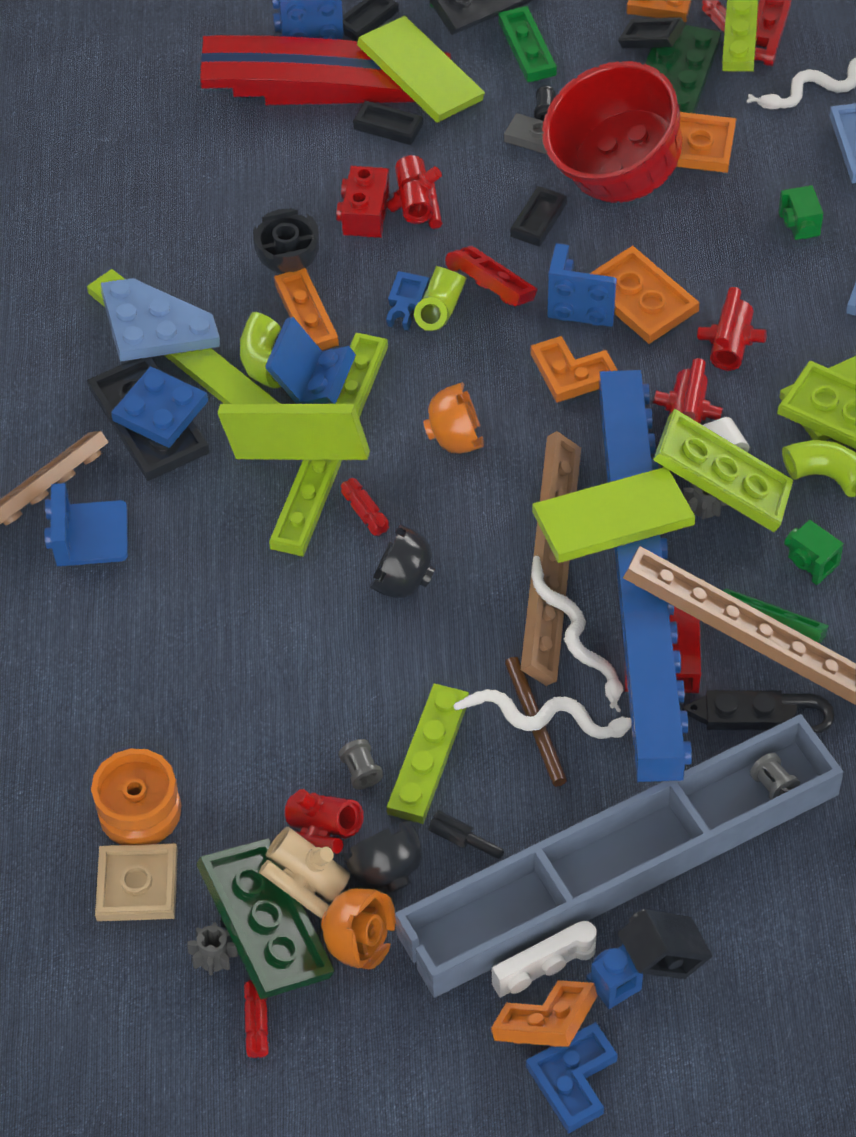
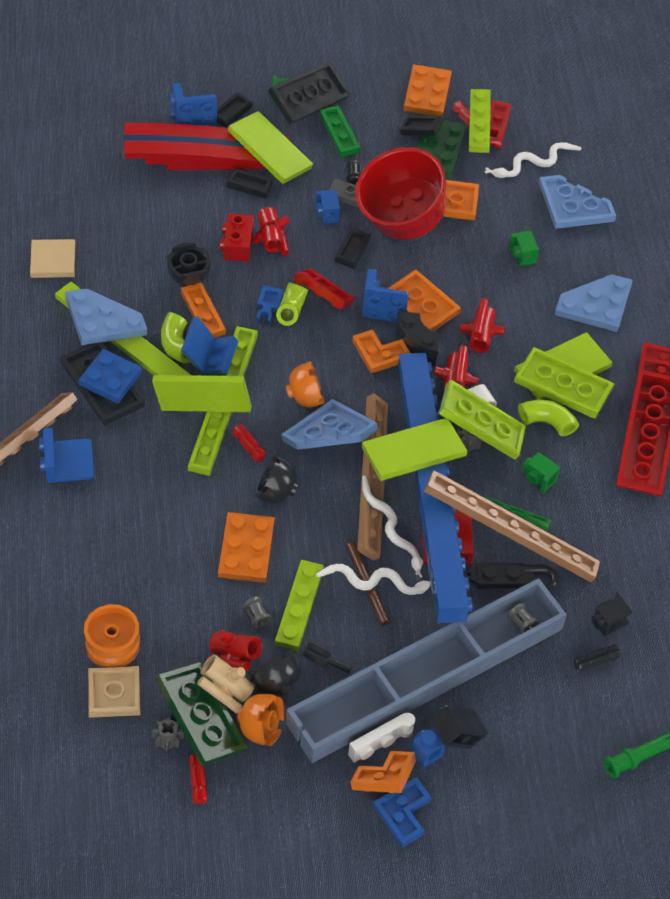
camera: 10 degrees left, 0 degrees up
(87, 235) = (52, 258): none -> tan tile
(351, 664) = (246, 547): none -> orange plate
(488, 481) = (330, 426): none -> medium blue plate
(503, 153) = (327, 206): none -> blue brick
(629, 345) = (417, 336): none -> black brick

